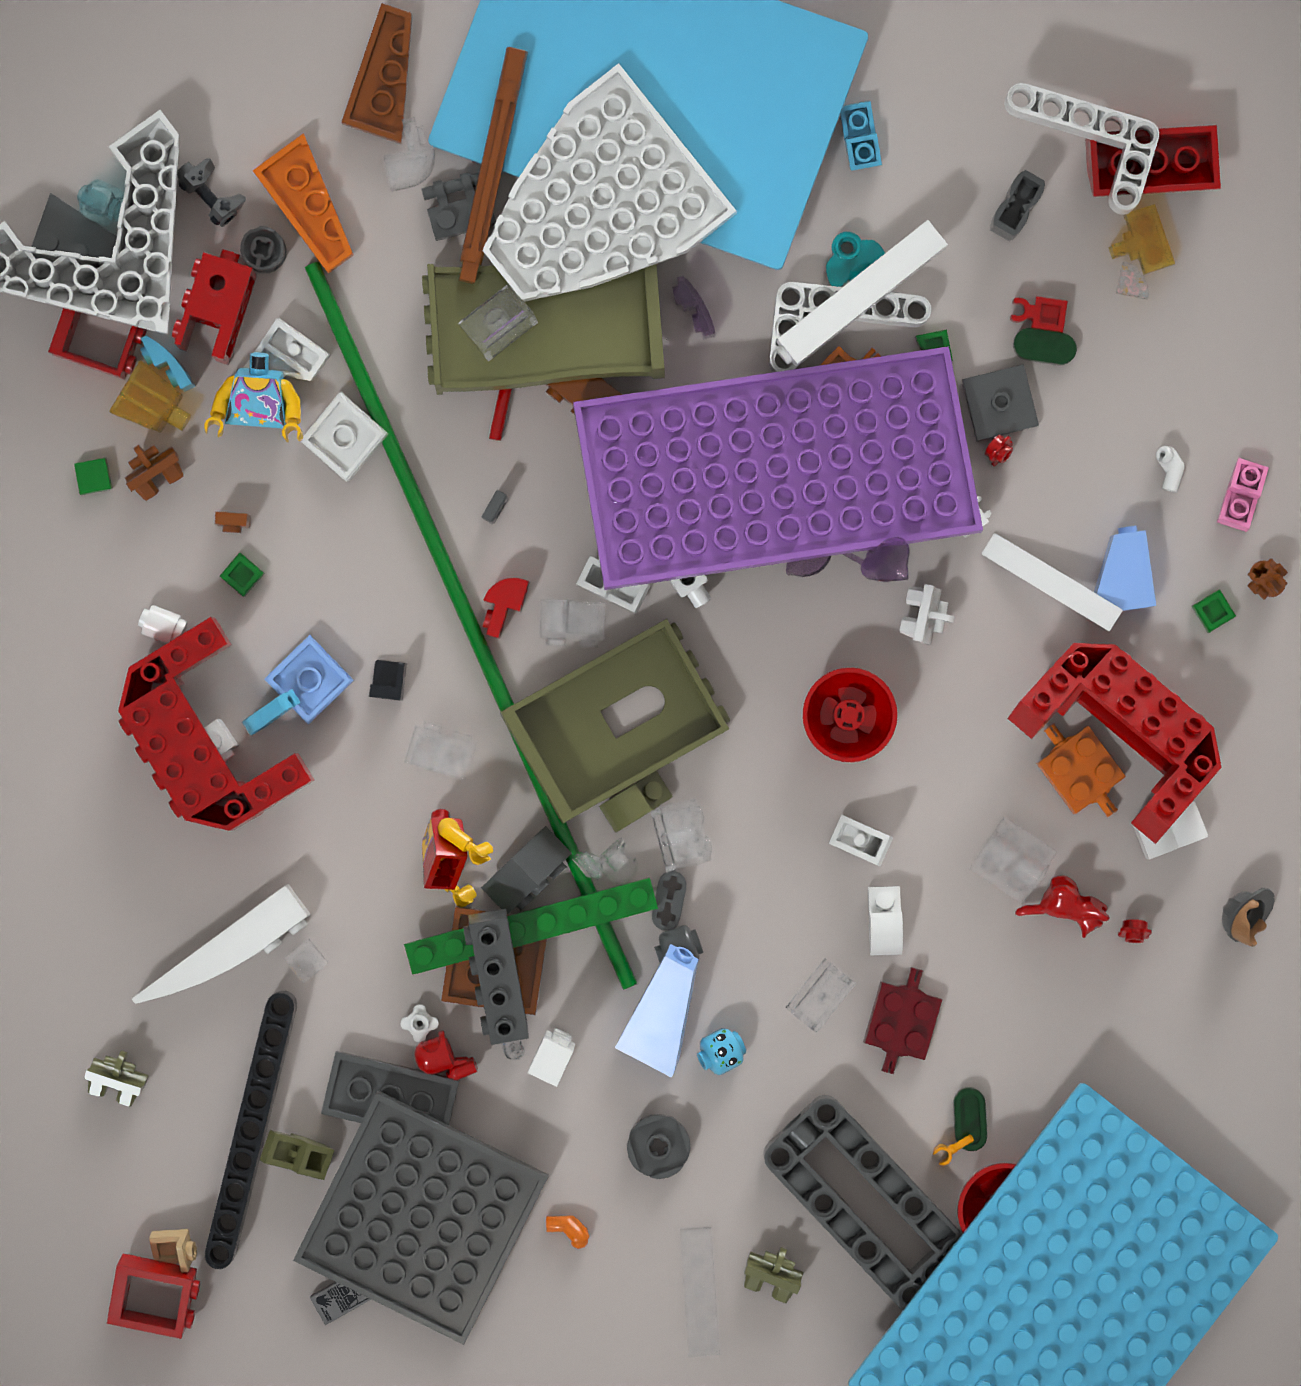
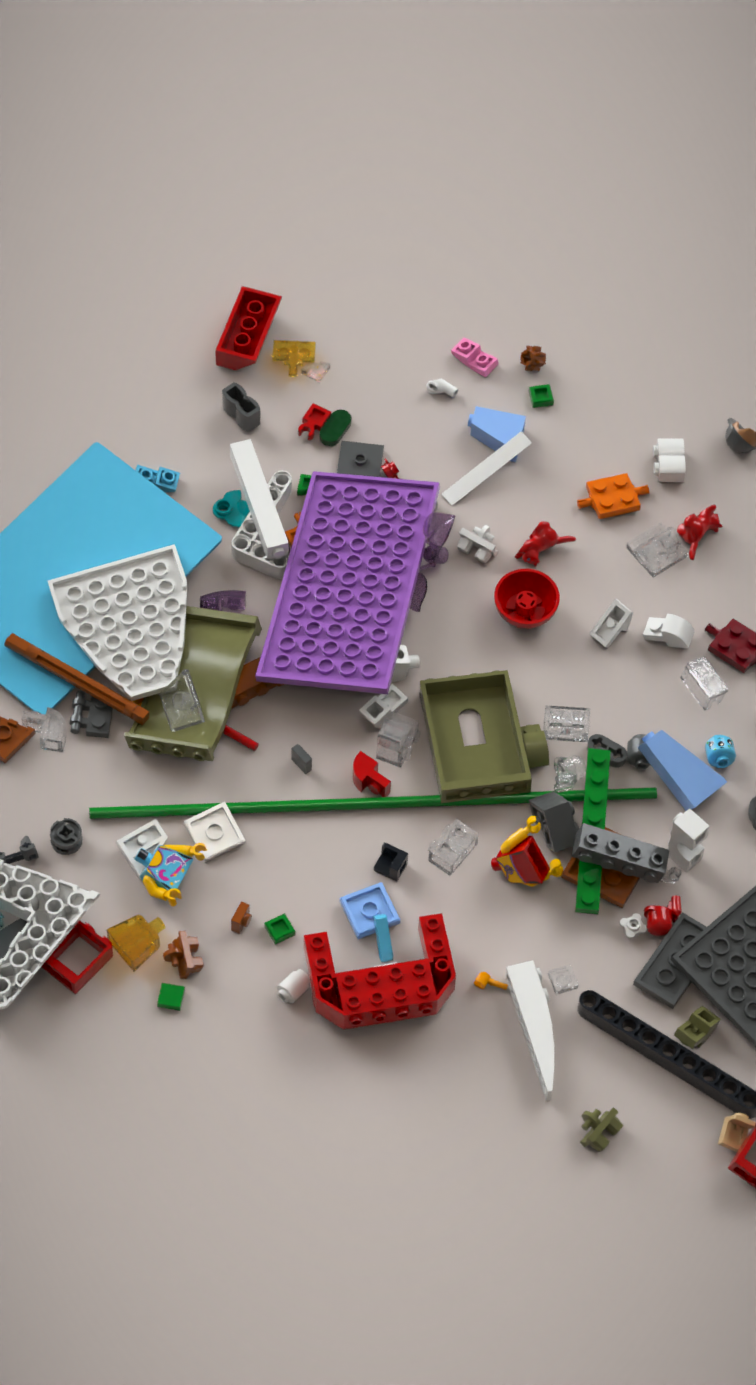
camera: 75 degrees left, 30 degrees down
(160, 357) = (113, 917): medium azure slope -> none
(216, 300) = (93, 867): red torso -> none
(268, 858) = (484, 978): none -> light orange hand
(301, 194) = (38, 802): orange wing -> none
(963, 698) = (540, 540): none -> red animal
(1094, 131) = (228, 324): white beam -> none
(1134, 931) = (728, 499): red plate -> none
(1140, 714) = (597, 443): red wedge -> none

